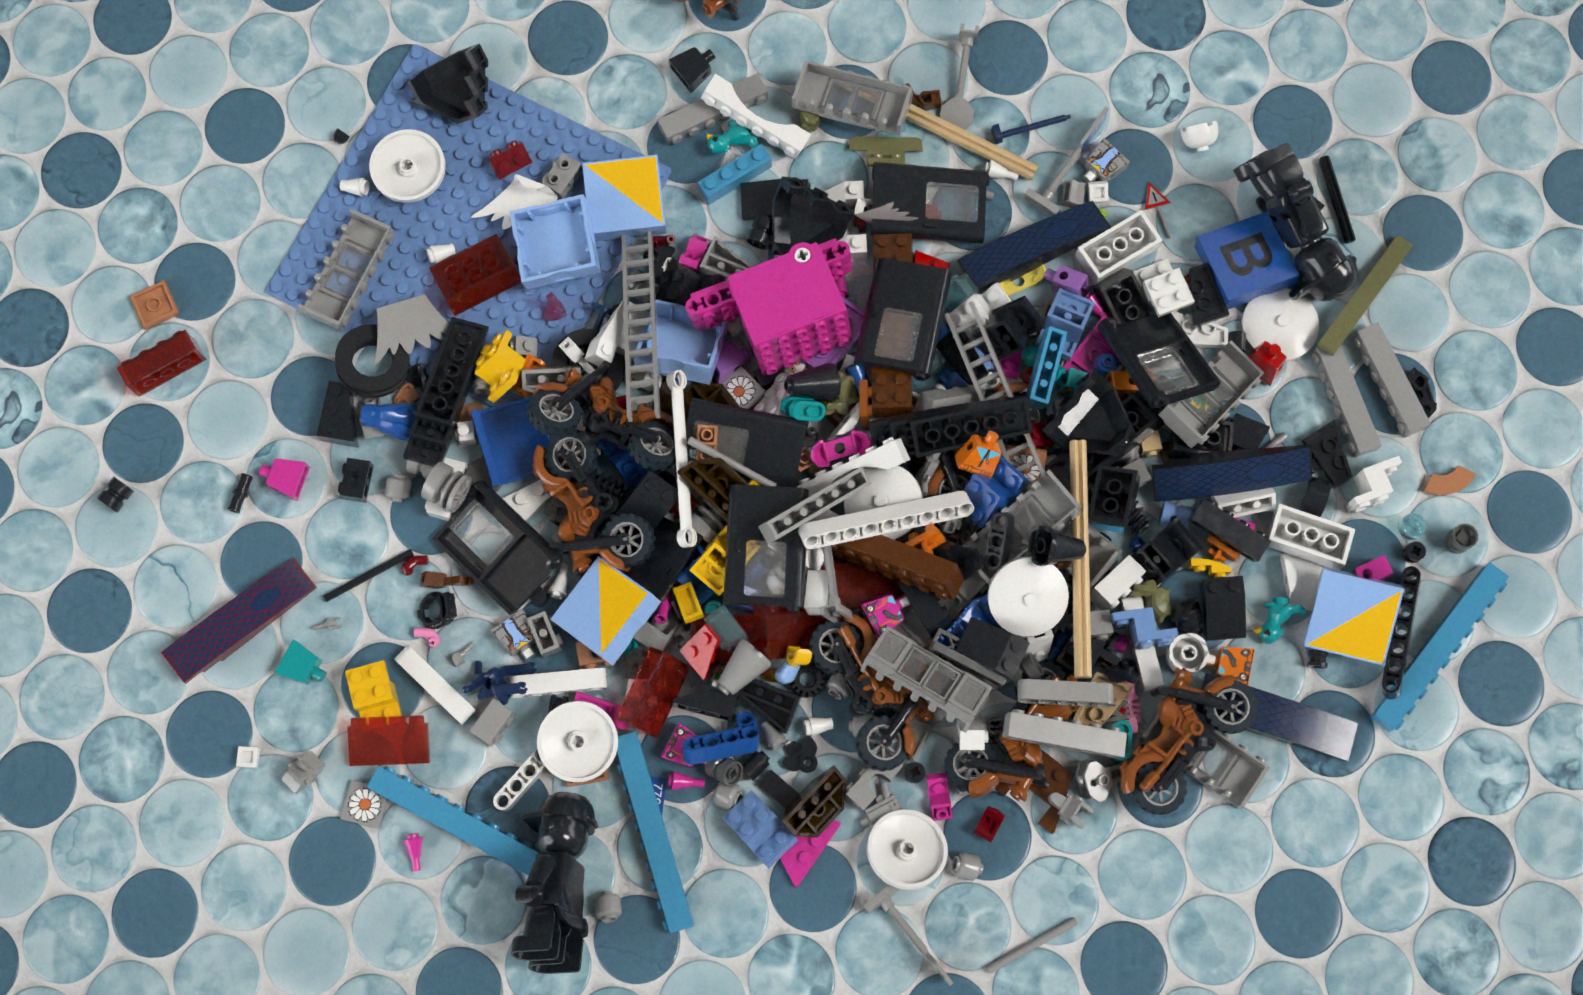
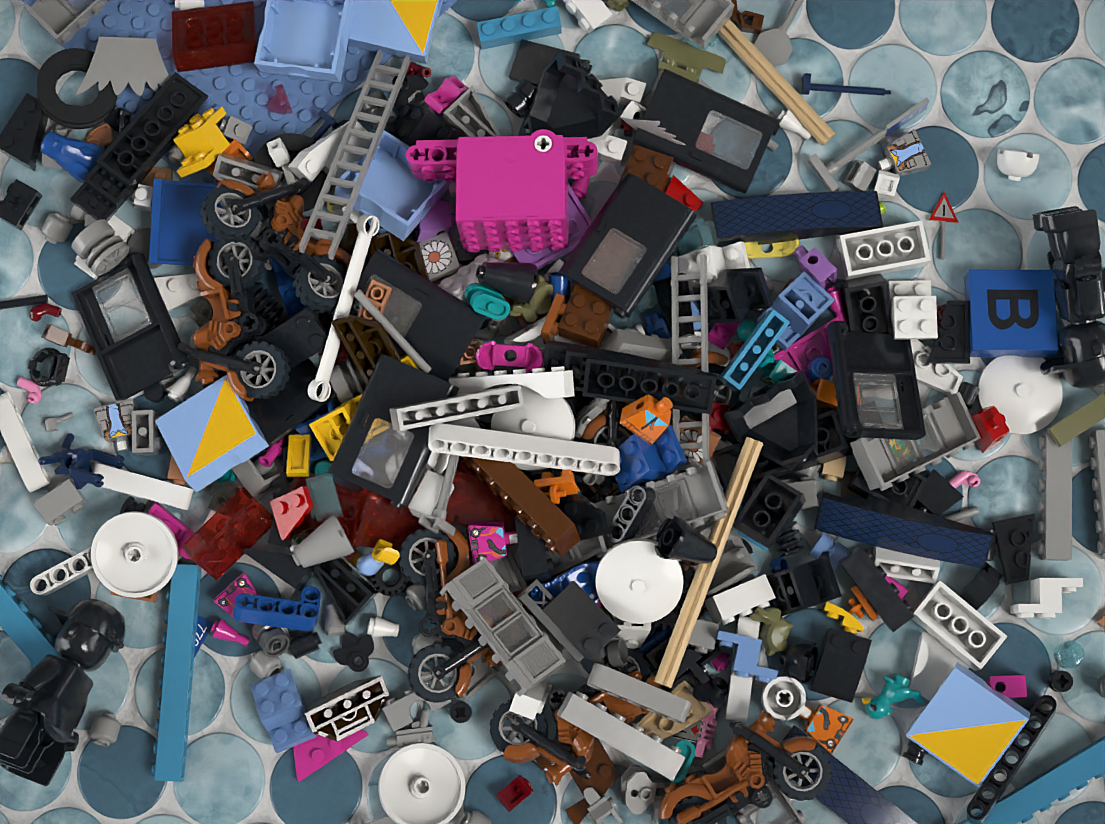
camera: 20 degrees right, 5 degrees up
(778, 789) = (319, 676): black tile -> none
(939, 796) = (476, 746): dark pink slope -> none
(1265, 412) = (965, 478): none -> bright pink arm

